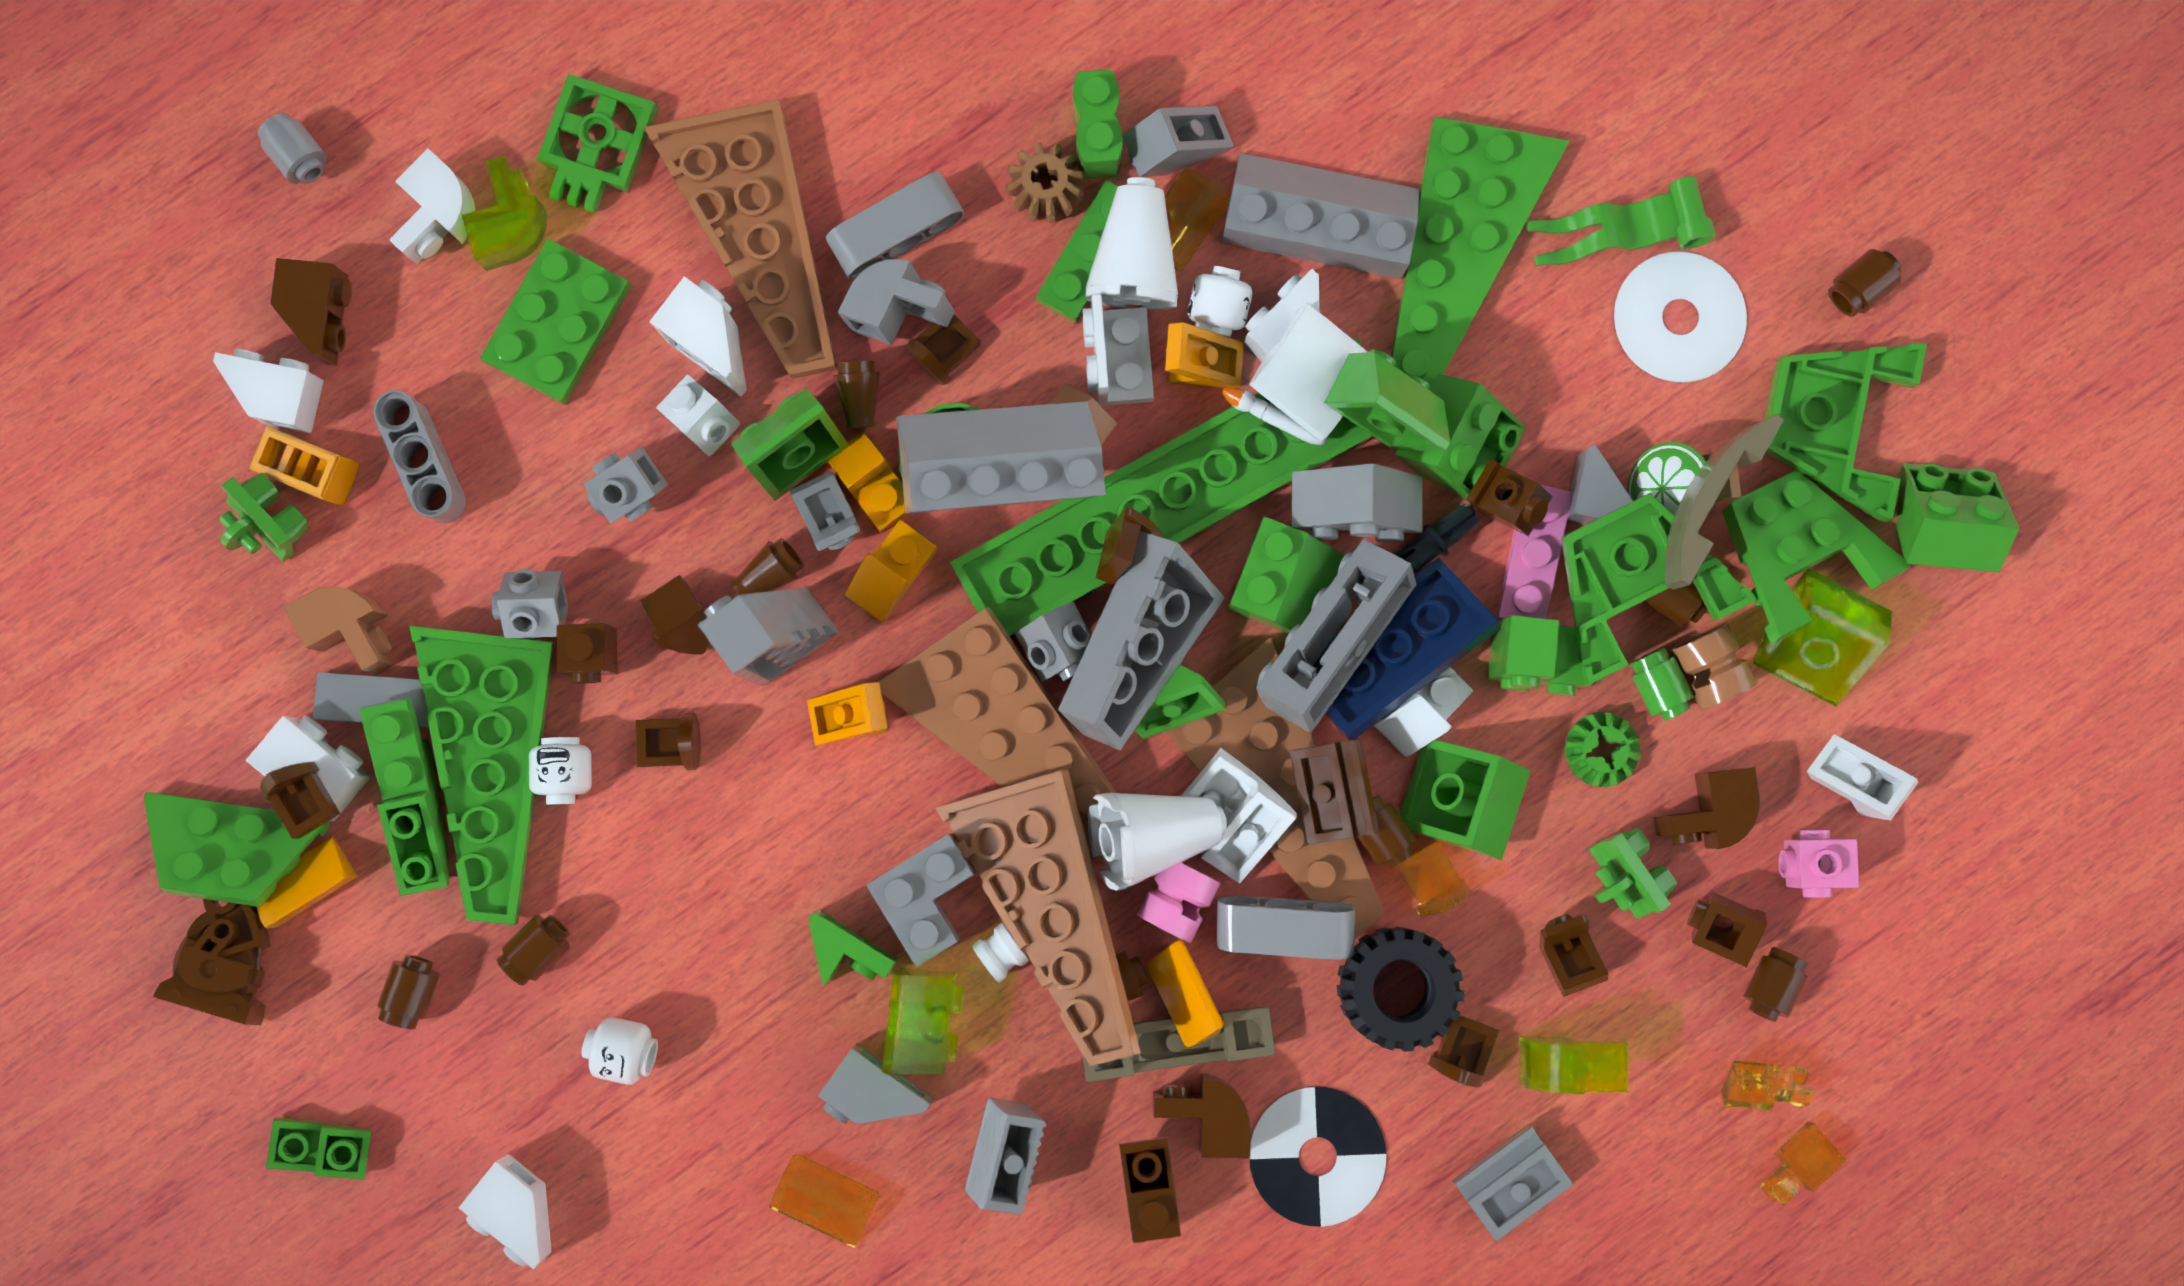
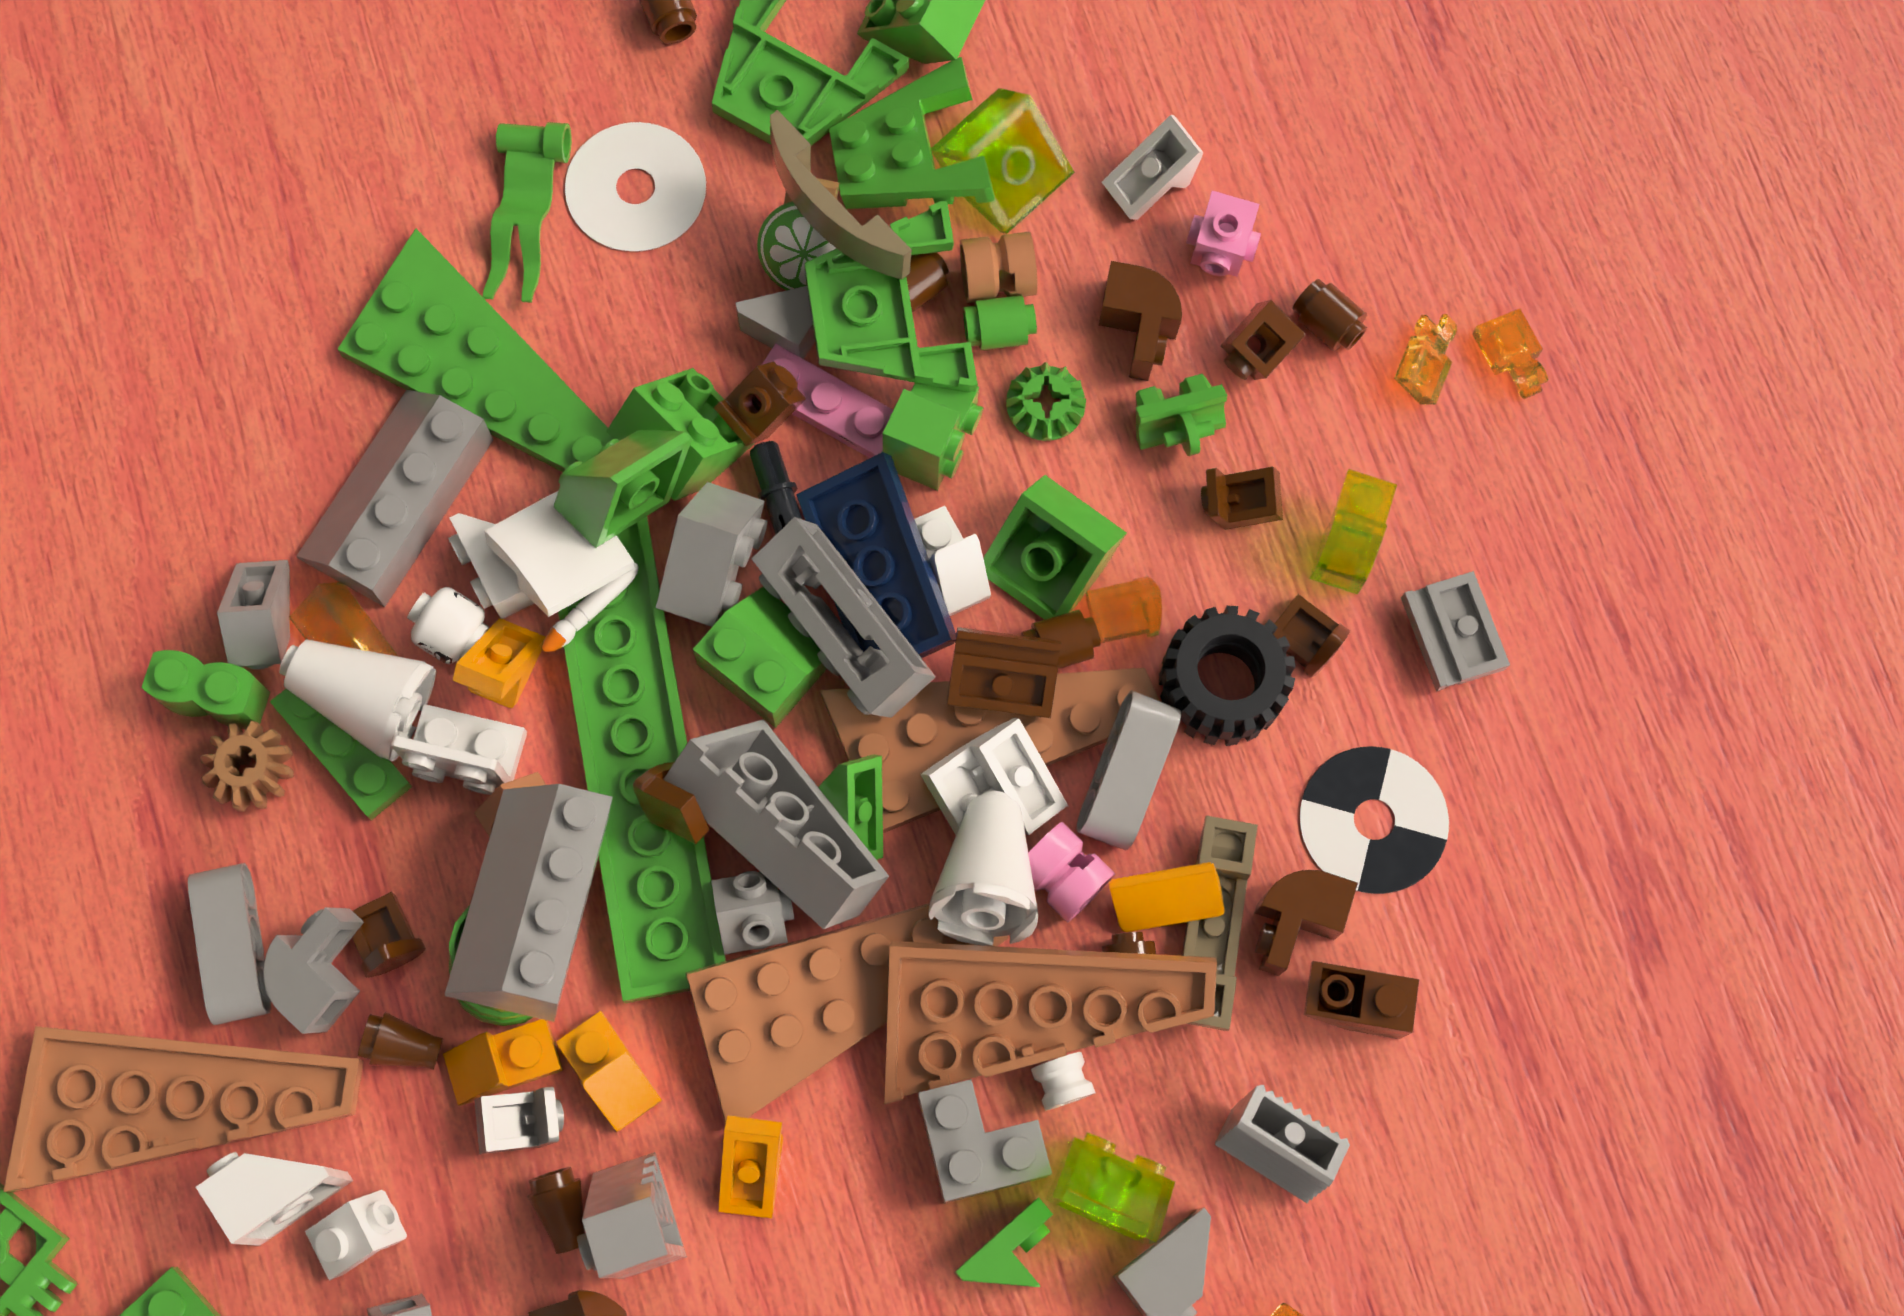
camera: 75 degrees left, 10 degrees down
(789, 444) = (426, 1135): bright green slope -> none

